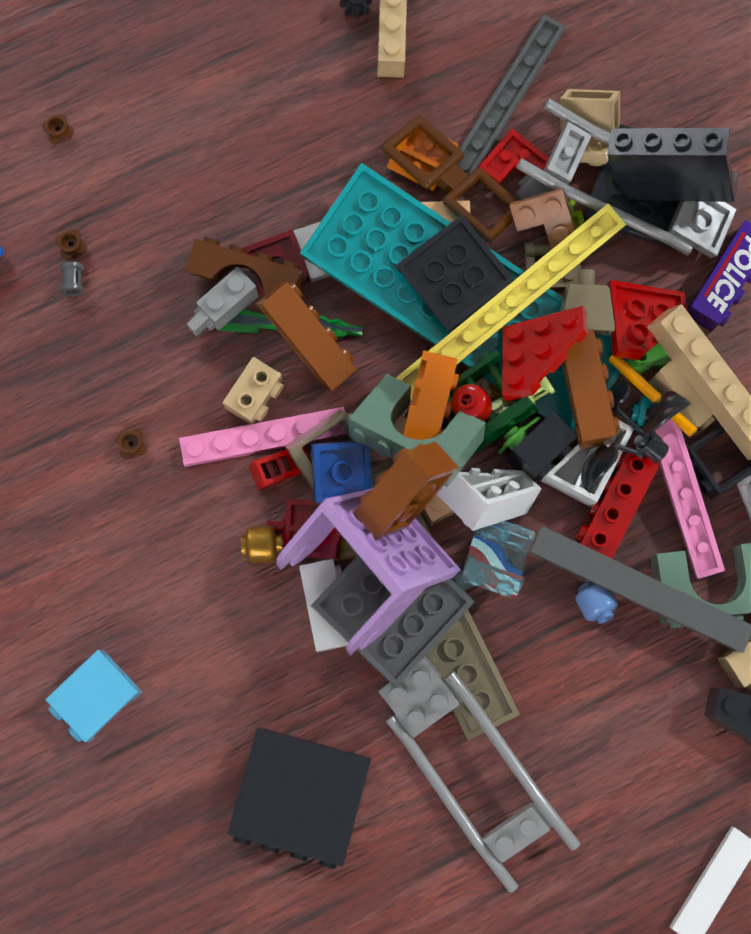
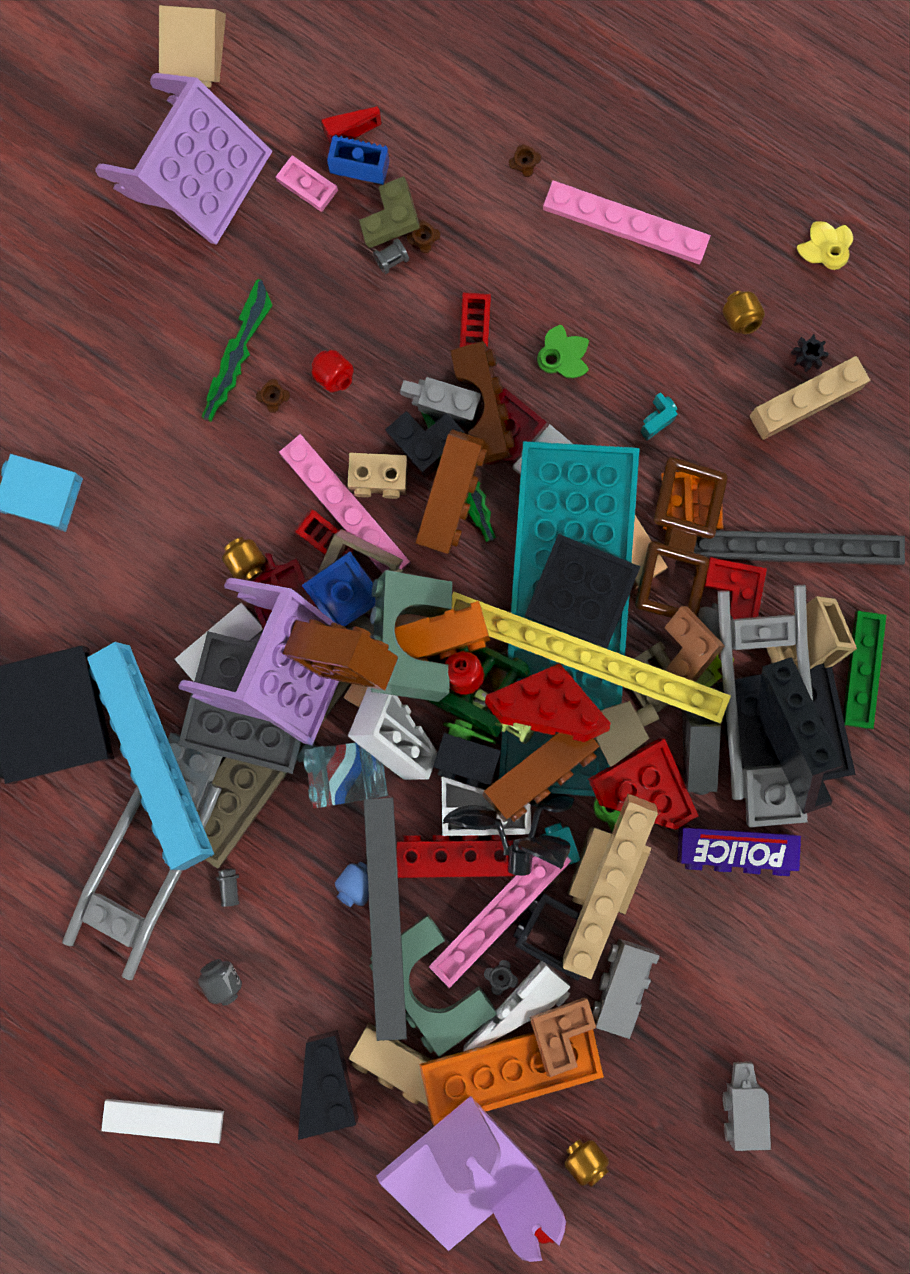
camera: 70 degrees right, 5 degrees up
(42, 258) = (397, 217): none -> olive plate
(72, 453) = (236, 352): none -> green sword
(141, 380) = (332, 371): none -> red head
(159, 80) = (626, 222): none -> bright pink plate
(159, 224) = (475, 298): none -> red slope
(240, 185) = (566, 352): none -> bright green plate
(253, 340) = (421, 447): none -> black brick
(292, 30) = (743, 312): none -> pearl gold head
(339, 135) = (656, 422): none -> teal bracket
(391, 718) = (149, 757): none -> medium azure brick
(540, 715) = (228, 887): none -> dark grey pin
(619, 766) = (220, 982): none -> dark grey head
(633, 100) = (864, 670): none -> green plate
(633, 259) = (700, 753): none -> dark grey slope
(651, 393) = (572, 833): light orange bar -> none
(741, 518) = (509, 980): none -> dark grey plate

